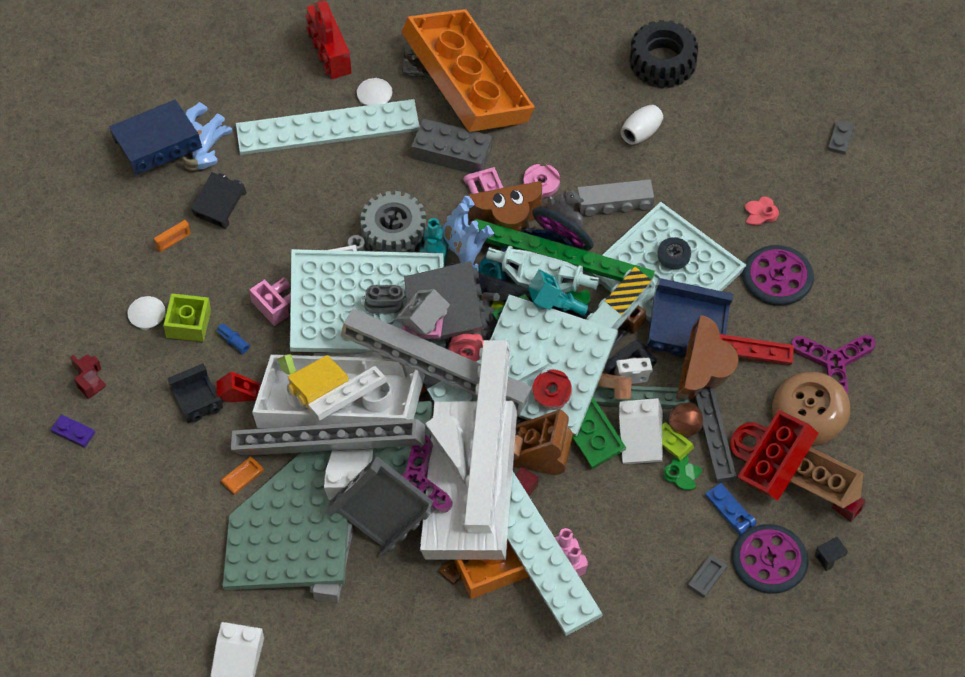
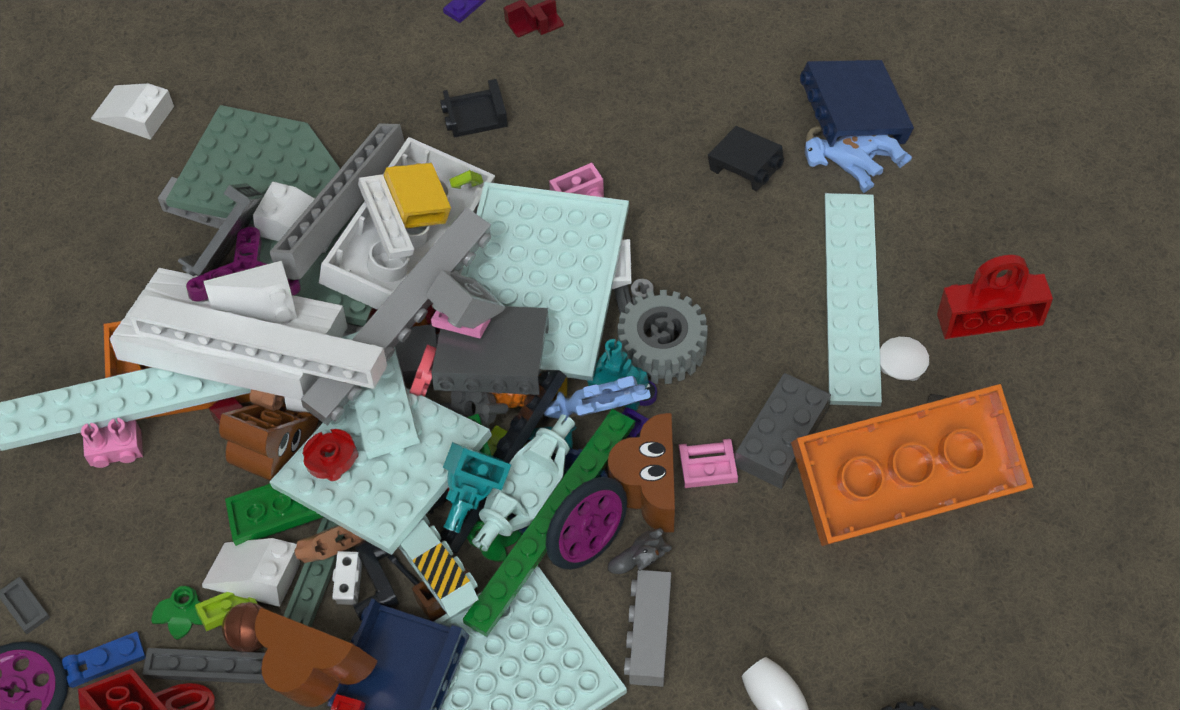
camera: 105 degrees right, 0 degrees up
(146, 312) = (604, 79): white dish -> none
(172, 236) = (705, 110): orange tile -> none
(187, 317) = (577, 108): lime brick -> none
(233, 338) = (542, 154): blue axle -> none
(237, 388) = (467, 143): red slope -> none
(242, 475) = (351, 137): orange tile -> none
(384, 299) = (523, 282): dark grey brick -> none
(549, 173) = (708, 523): bright pink plate -> none
(682, 250) = (518, 667): black bush -> none

